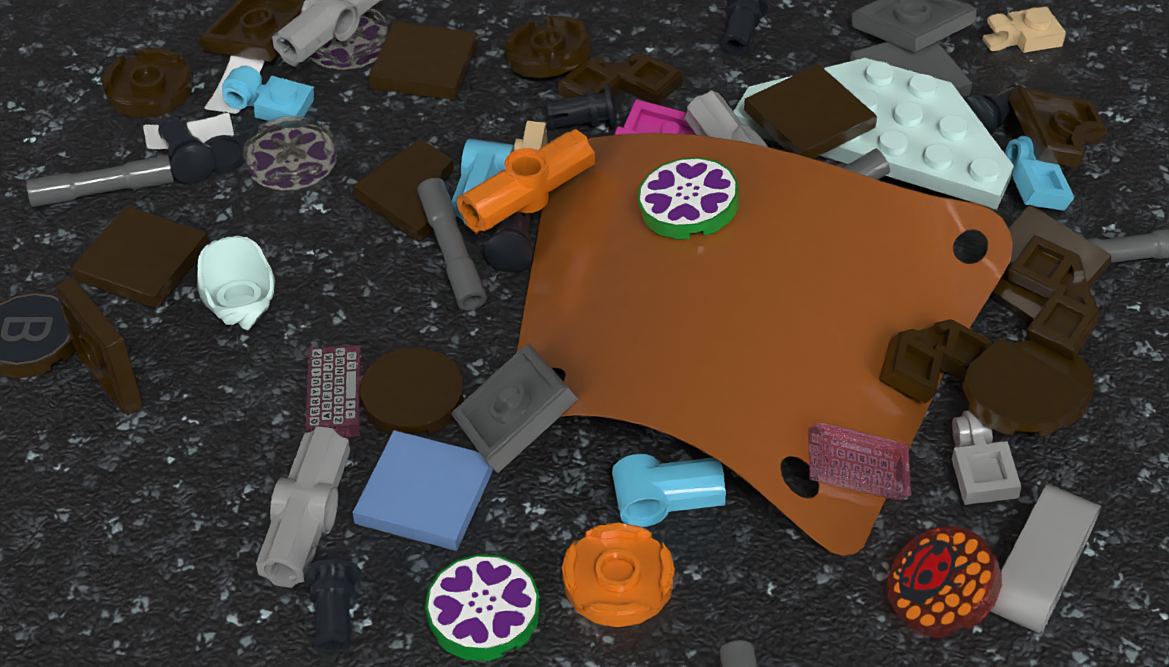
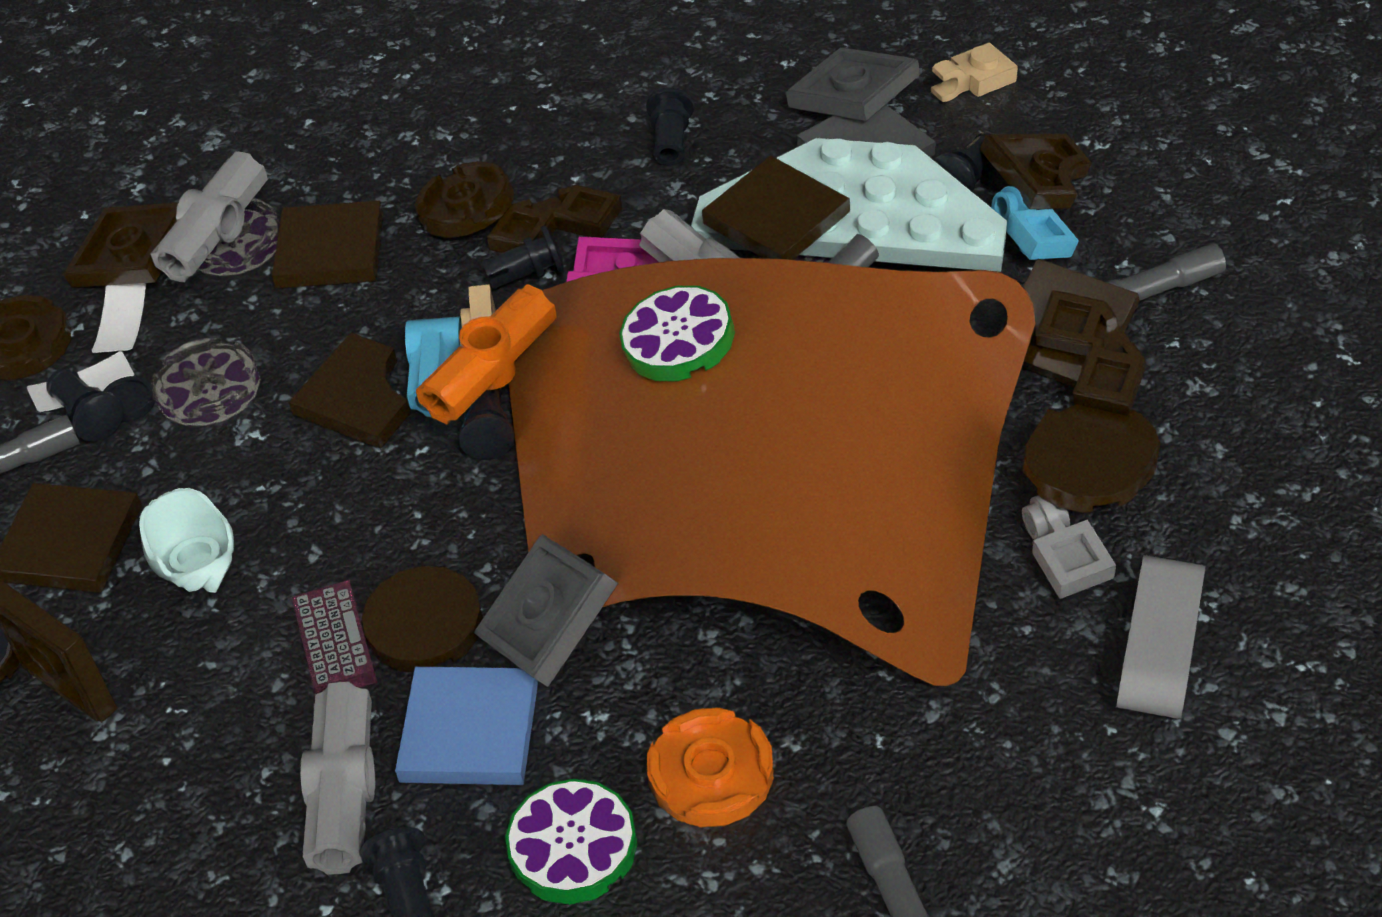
camera: 10 degrees left, 0 degrees up
(270, 101) = (168, 327): medium azure plate -> none
(460, 267) = (436, 465): dark grey piece -> none
(653, 489) = (723, 663): medium azure piece -> none
(859, 461) = (937, 579): clear pink tile -> none
(918, 356) = (968, 448): dark brown tile -> none
(944, 581) = (1066, 687): tile -> none

